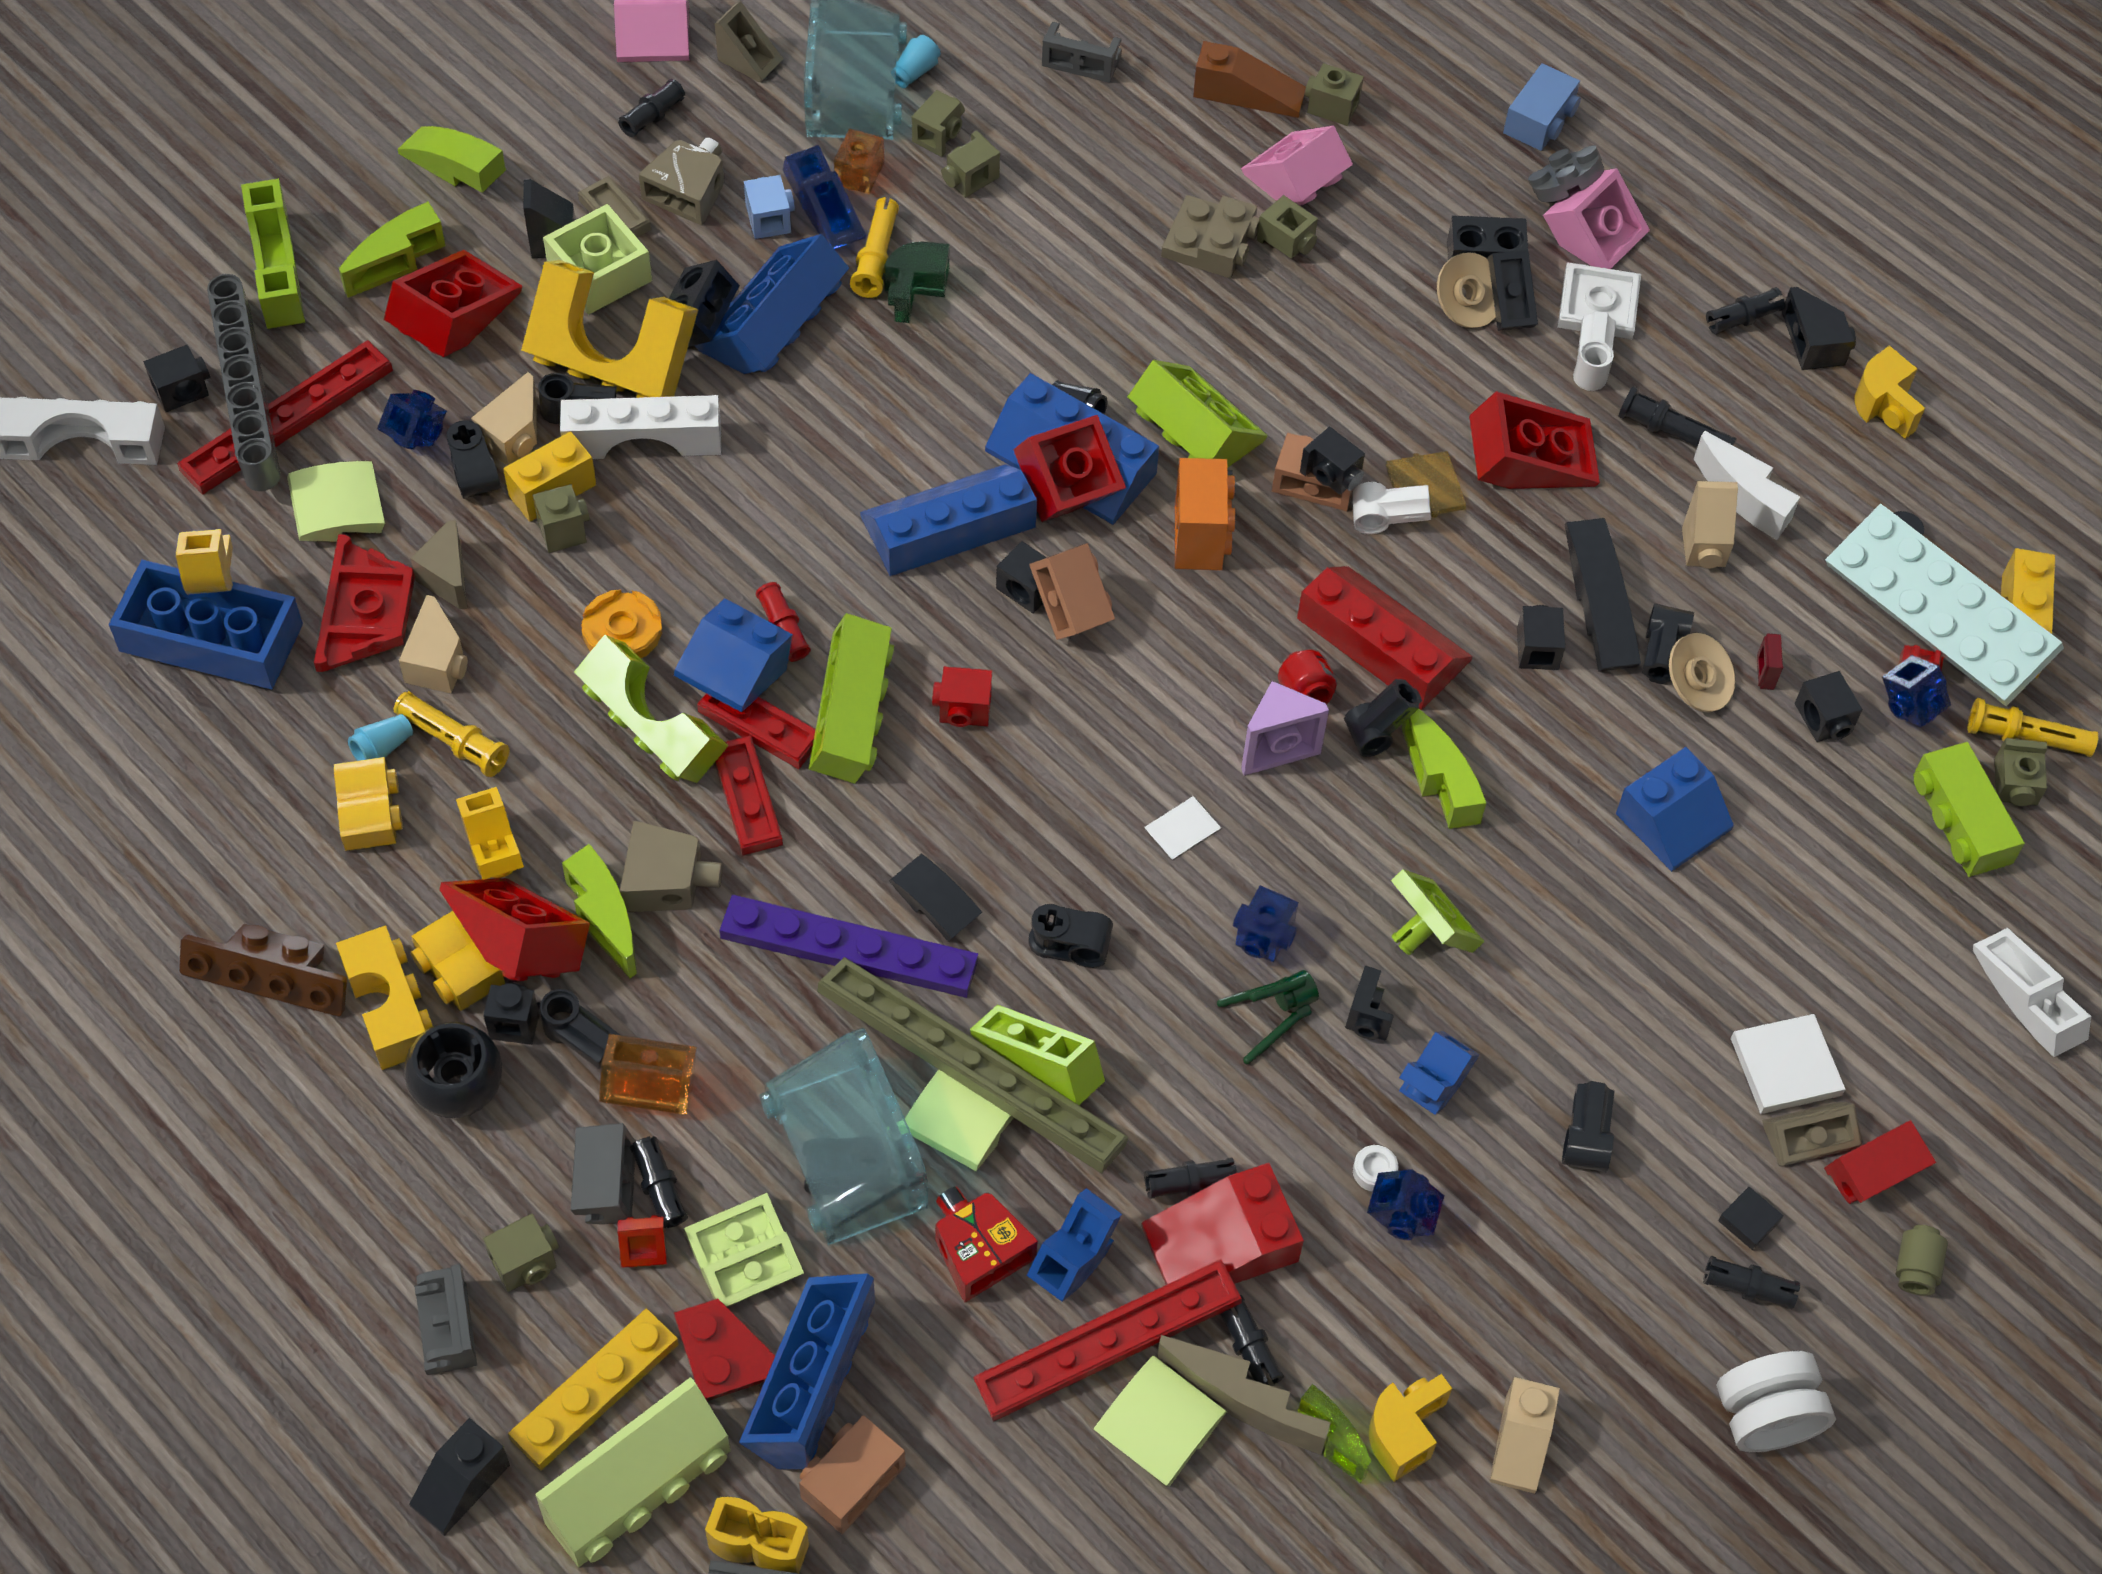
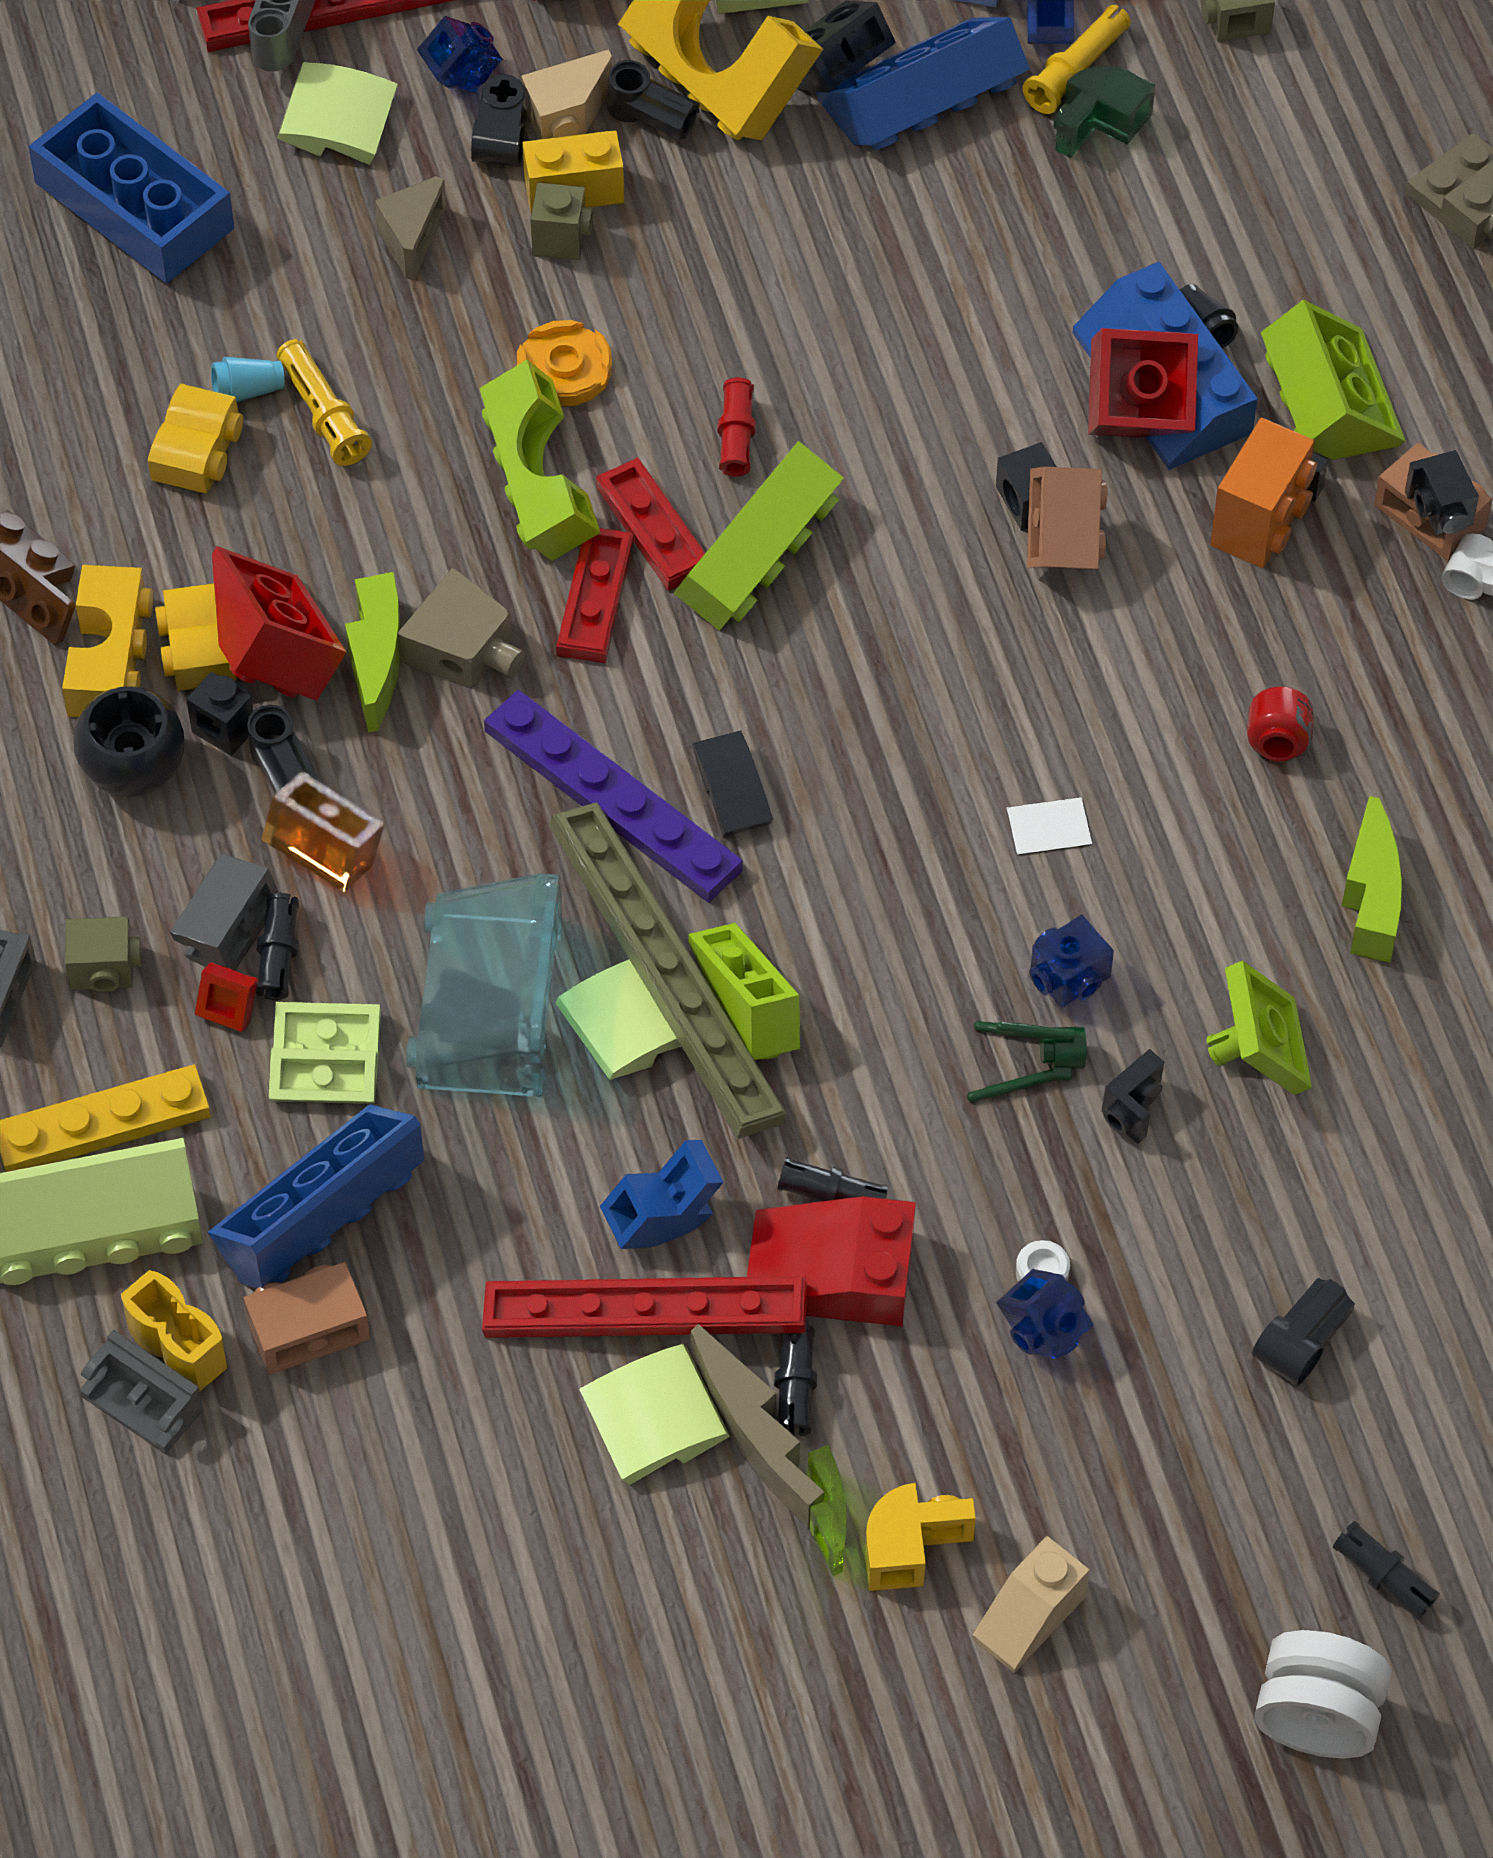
camera: 30 degrees right, 0 degrees up
(204, 561) = (151, 116): yellow brick -> none
(363, 606) = (304, 233): red wing -> none
(433, 651) = (348, 308): tan slope -> none
(489, 834) = (299, 520): yellow brick -> none
(683, 422) = (750, 171): white arch -> none
(721, 1350) = (243, 1137): red wing -> none
(734, 655) = (659, 440): blue slope -> none
(951, 518) = (985, 390): blue slope -> none
(964, 696) = (886, 585): red brick -> none
(980, 1241) = (569, 1151): red torso -> none
(1072, 936) = (853, 886): black piece -> none
(1283, 729) = (1208, 762): lavender slope -> none
(1376, 720) = (1329, 797): black piece -> none
(1380, 632) = (1399, 708): red slope -> none
(1438, 1072) = (1168, 1198): blue brick -> none
(1750, 1218) = (1431, 1506): black tile -> none

